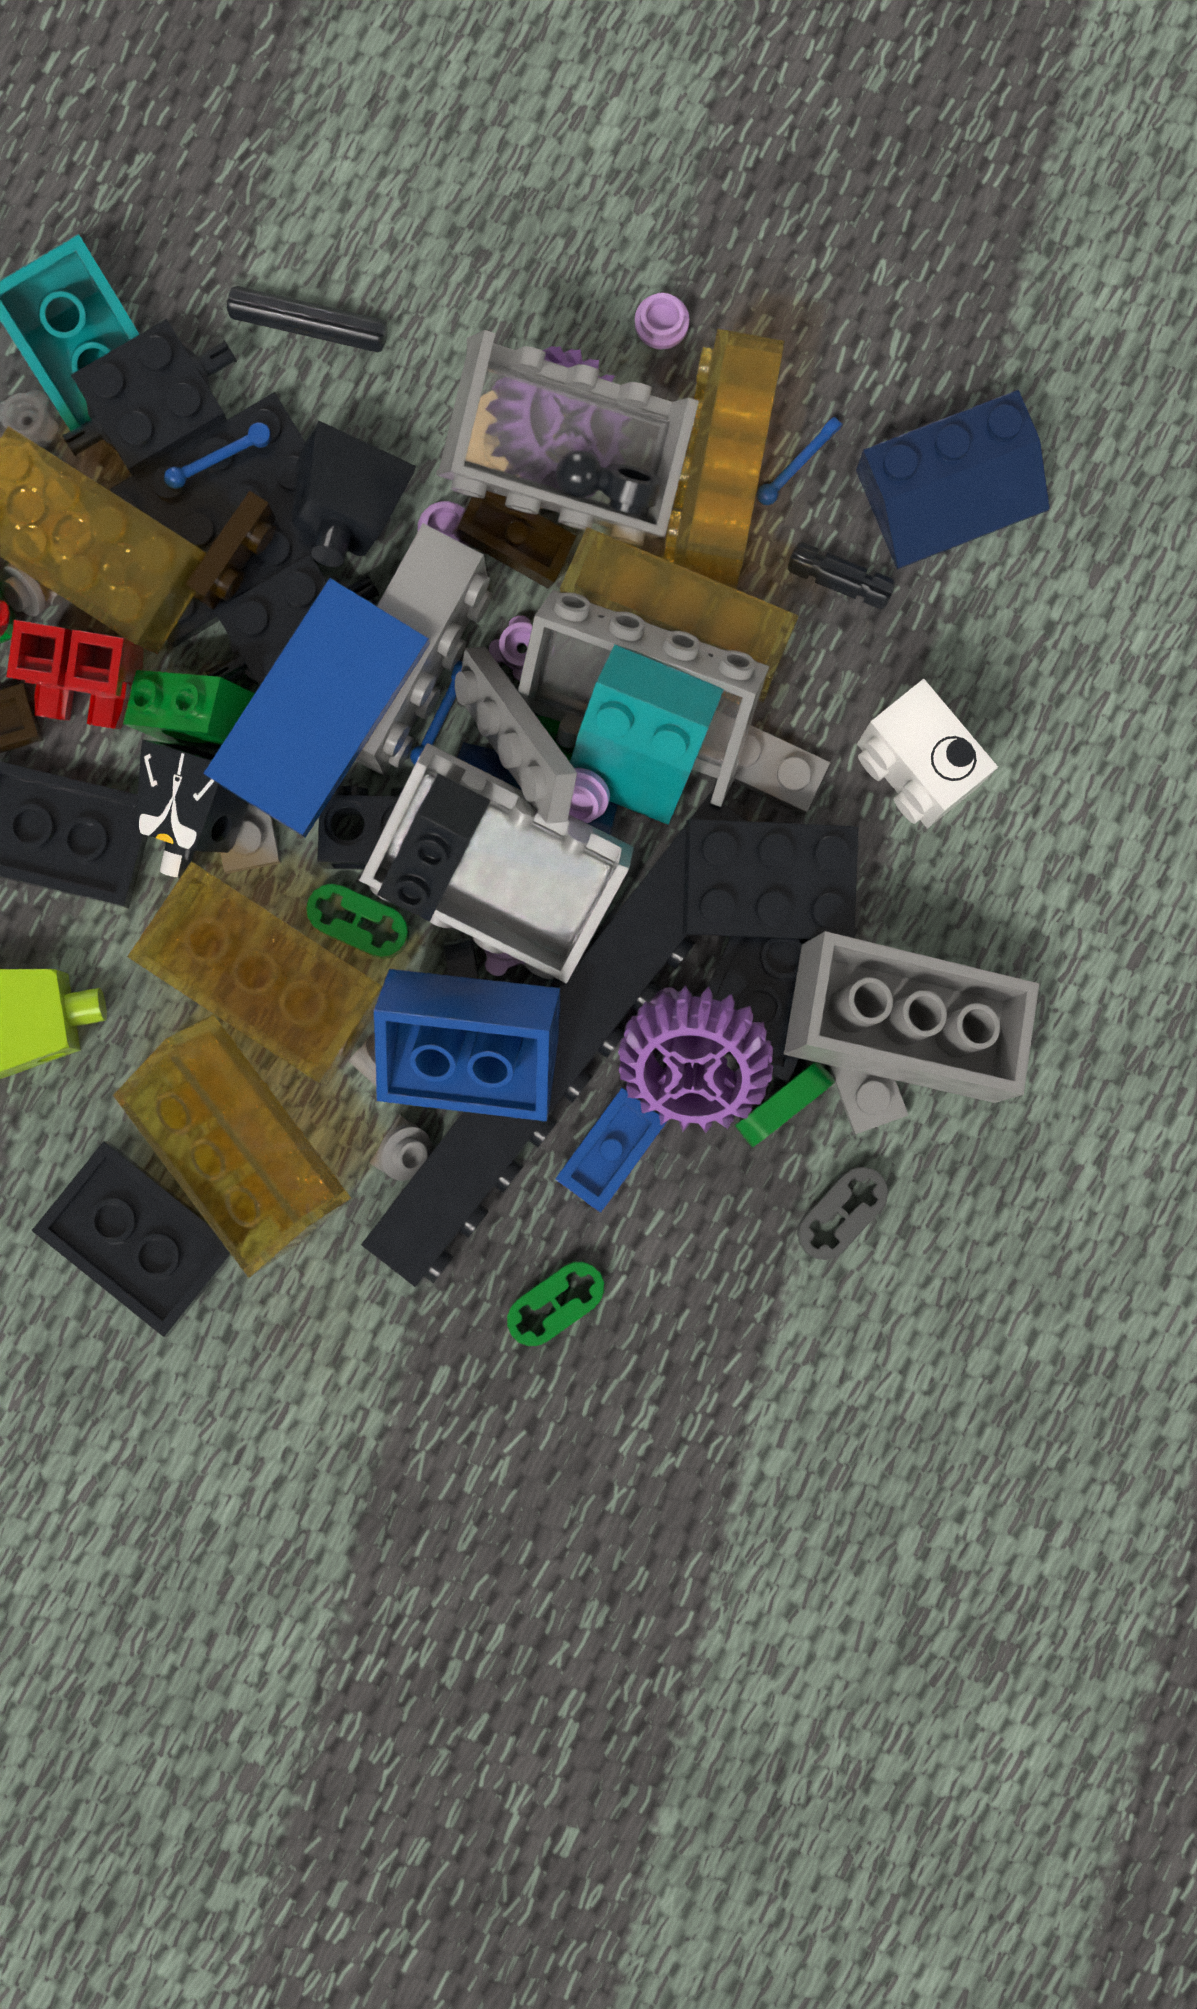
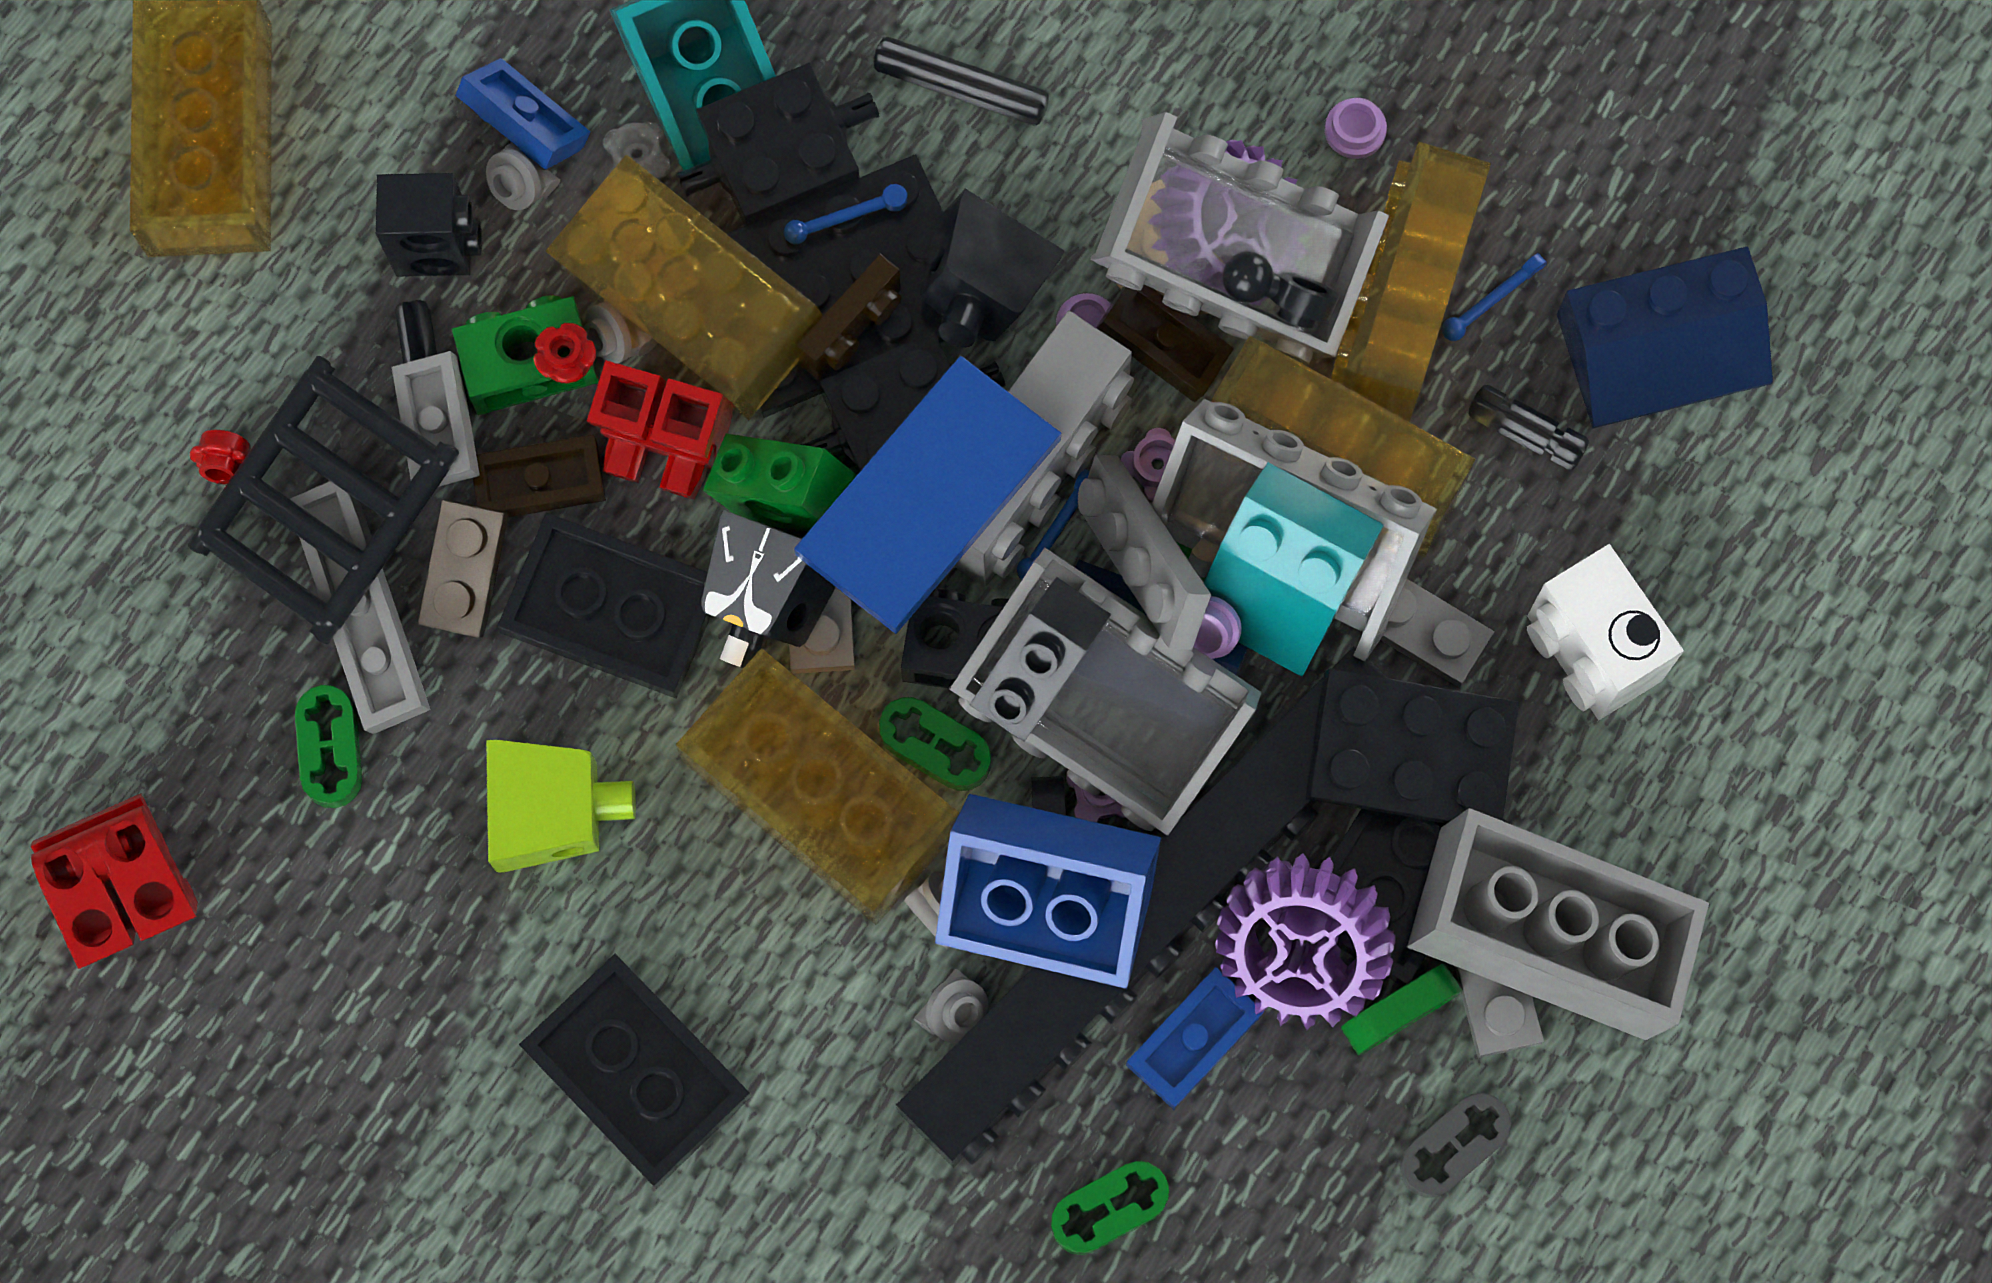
camera: 10 degrees right, 10 degrees down
(230, 1145) = (763, 973): clear yellow brick -> none

